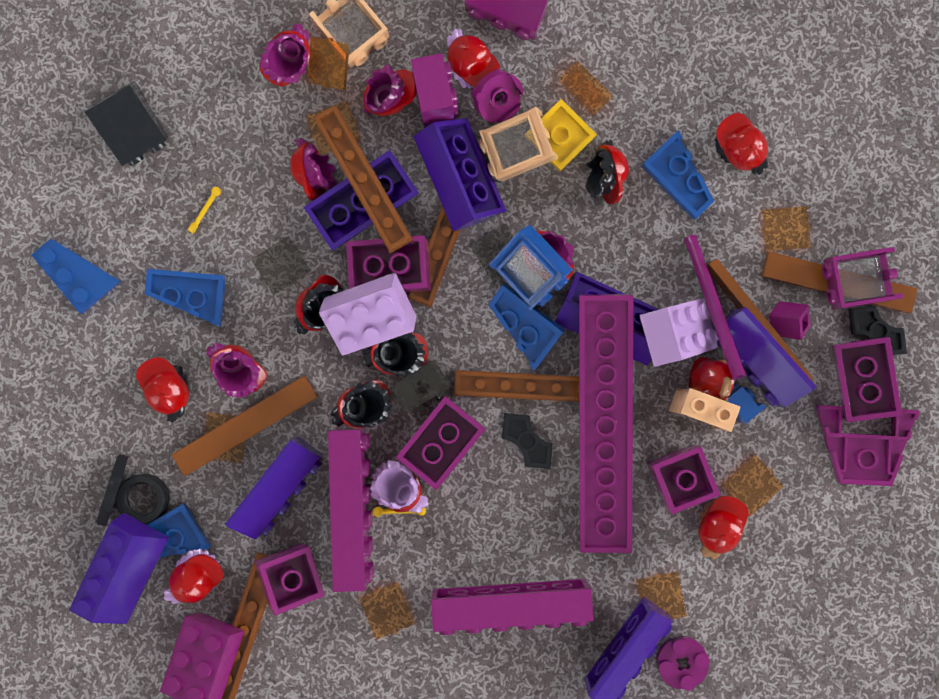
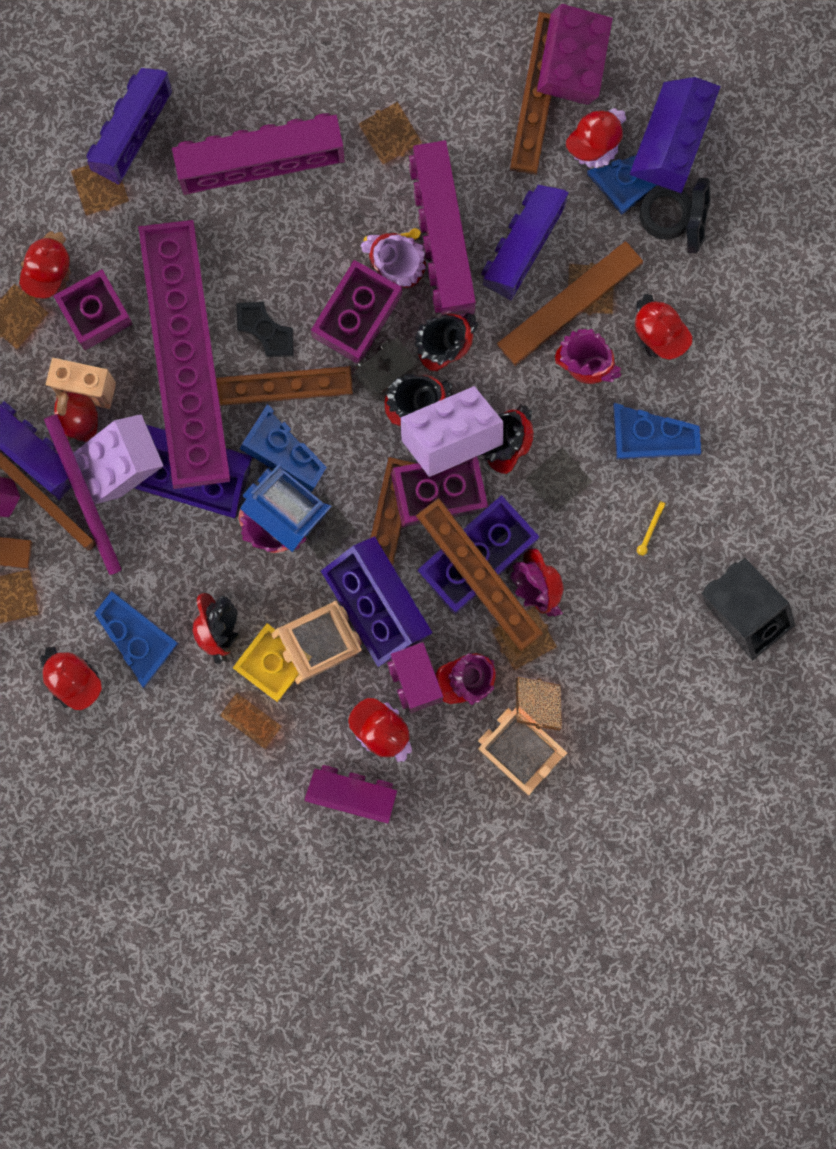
camera: 175 degrees right, 5 degrees down
(73, 275) = (779, 436): blue wing -> none
(286, 56) = (585, 703): magenta hair -> none
(289, 578) = (496, 150): magenta brick -> none
(486, 90) = (348, 705): magenta plate -> none
(686, 677) = (63, 107): magenta plate -> none
(745, 399) = (39, 398): blue brick -> none

